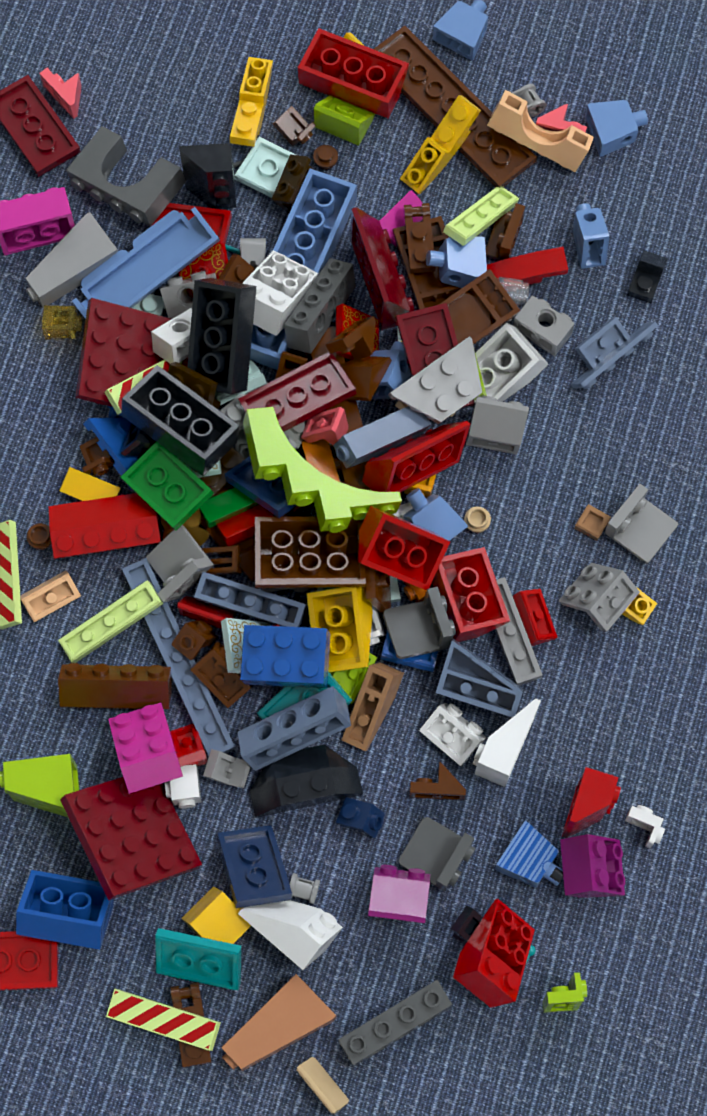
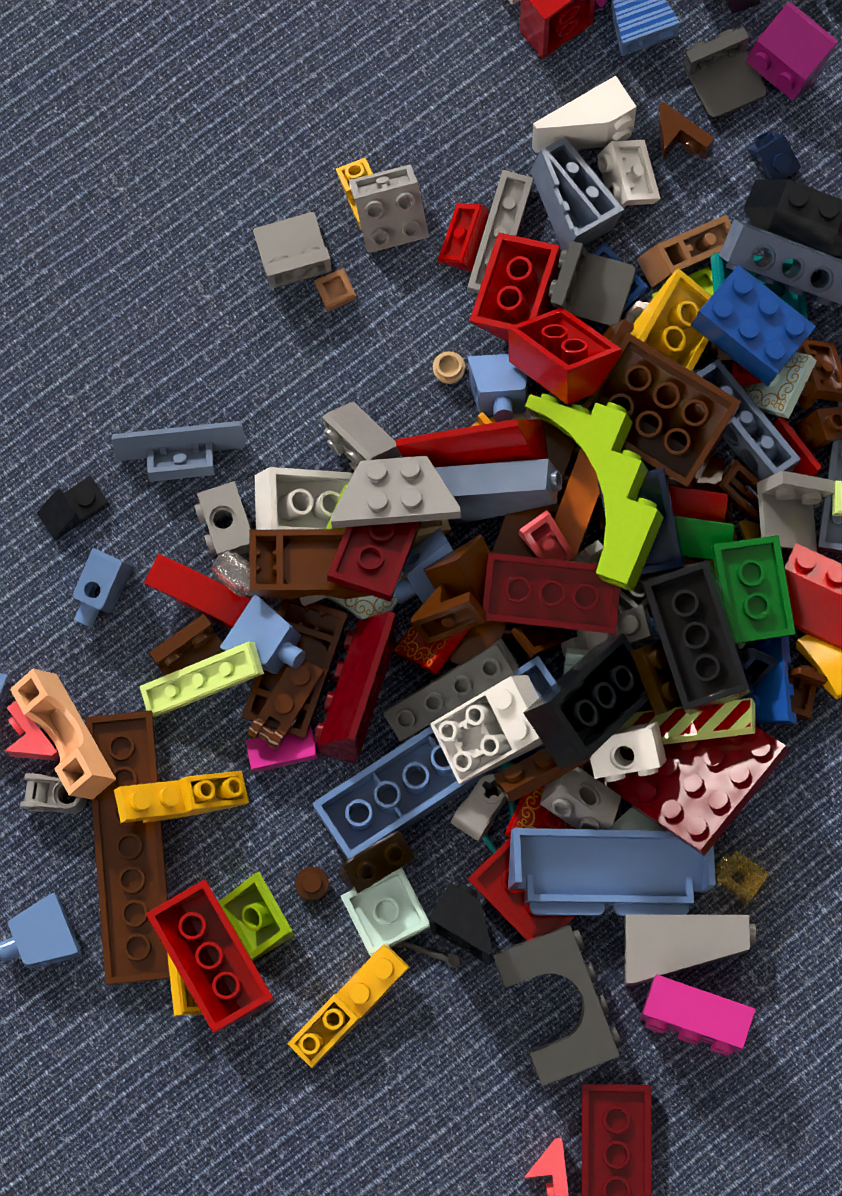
camera: 140 degrees left, 5 degrees up
(294, 127) = (321, 940): bracket -> none

